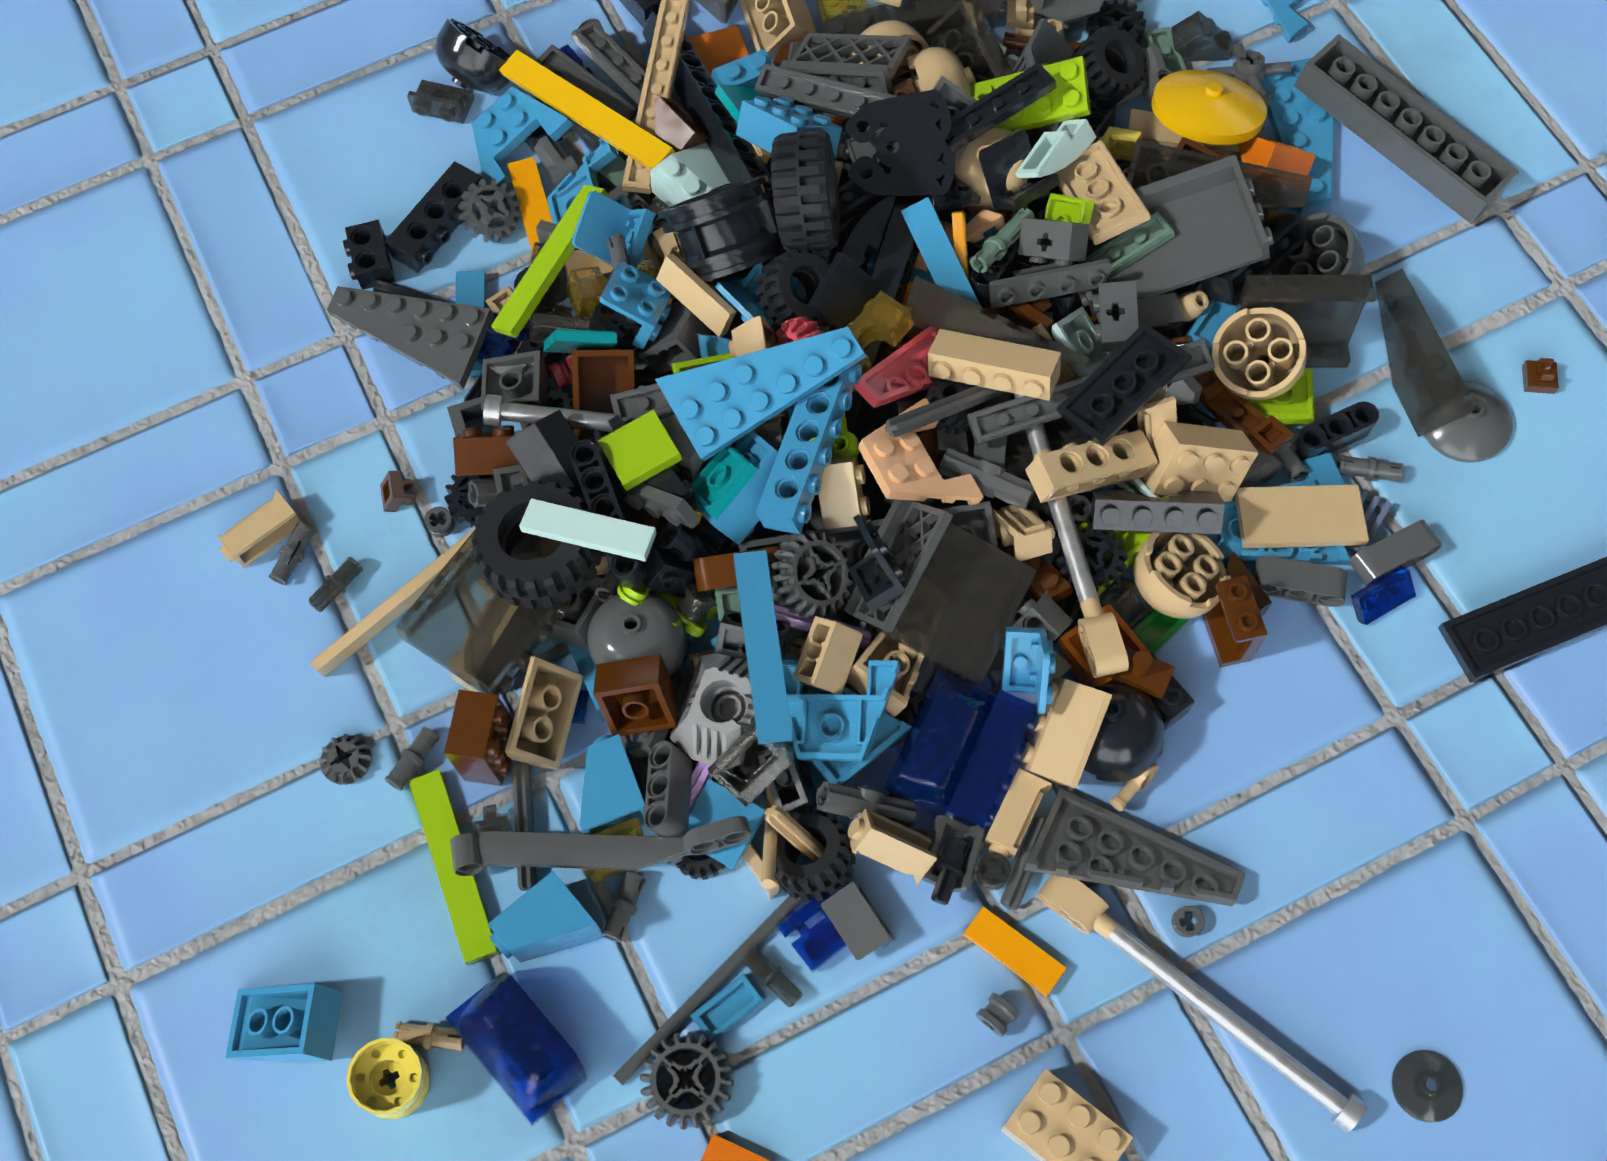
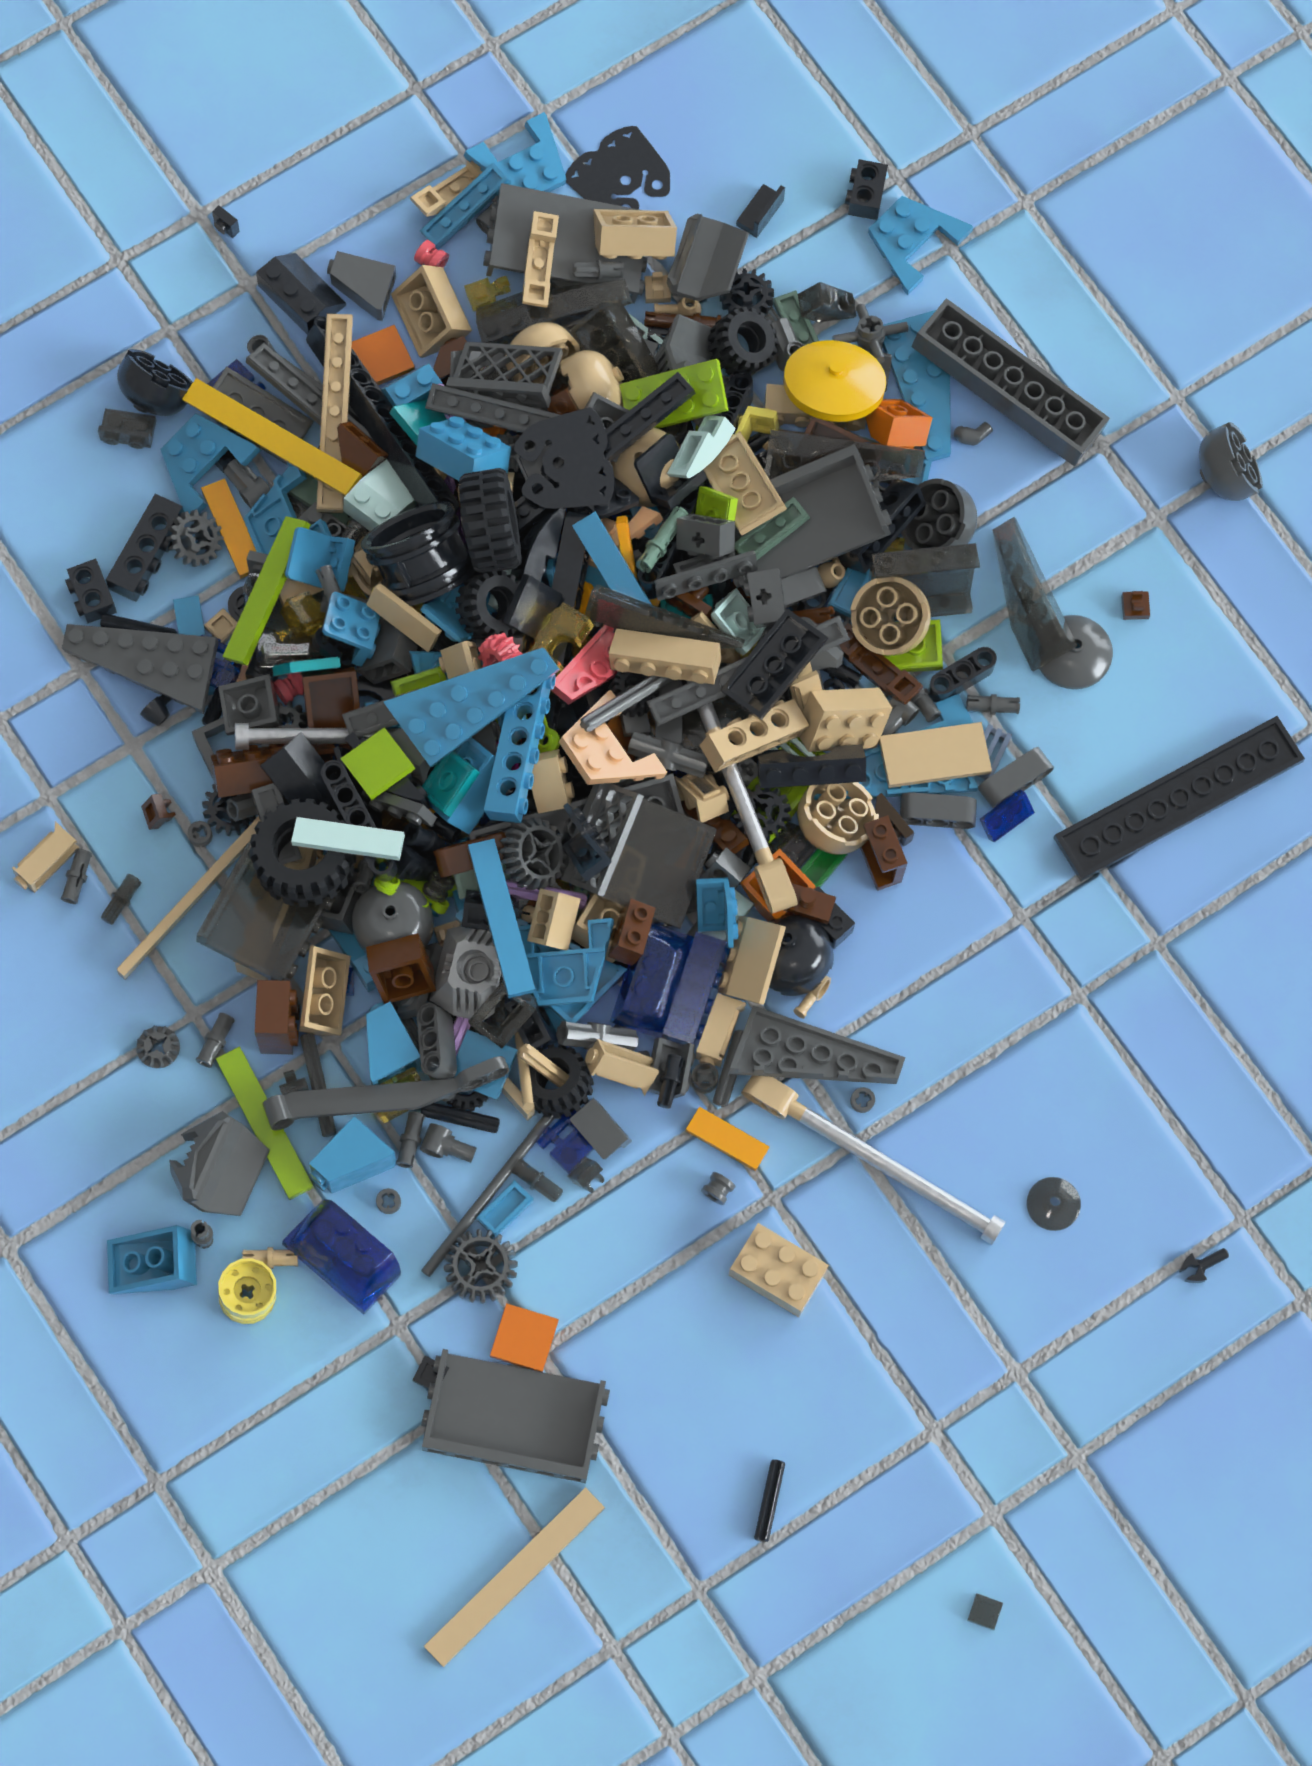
camera: 15 degrees left, 5 degrees up
(347, 997) = (202, 1234): none -> dark grey pin
(384, 913) = (220, 1166): none -> dark grey helmet
(415, 383) = (156, 710): none -> black bar
(575, 980) = (397, 1200): none -> dark grey bush
(659, 914) = (440, 1142): none -> dark grey pin
(689, 886) = (461, 1117): none -> black axle
(832, 975) = (585, 1173): none -> clear smoke tile
(921, 681) = (631, 932): none -> reddish brown brick
(1356, 184) = (972, 436): none -> dark grey arm

